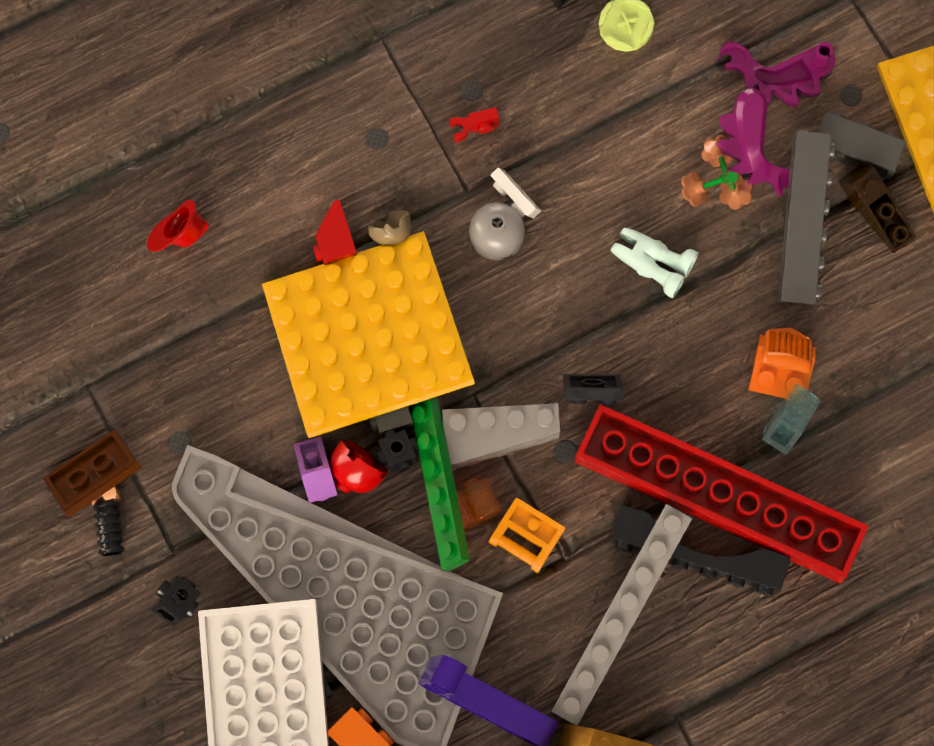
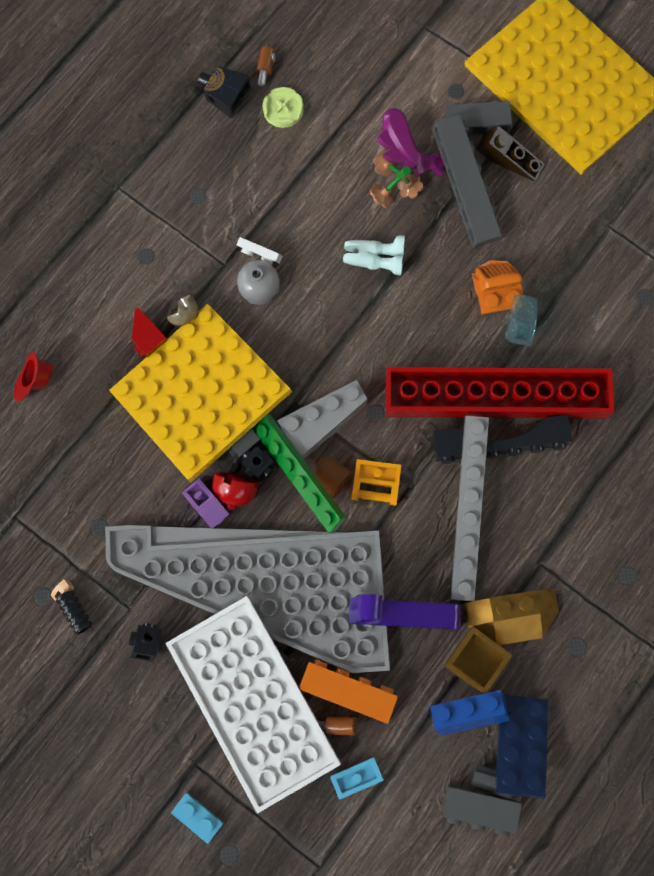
camera: 20 degrees left, 0 degrees up
(91, 473) = (44, 578): reddish brown tile -> none
(480, 121) = (211, 214): red plate -> none
(584, 387) = (368, 362): black plate -> none
(794, 75) = (410, 96): magenta animal -> none

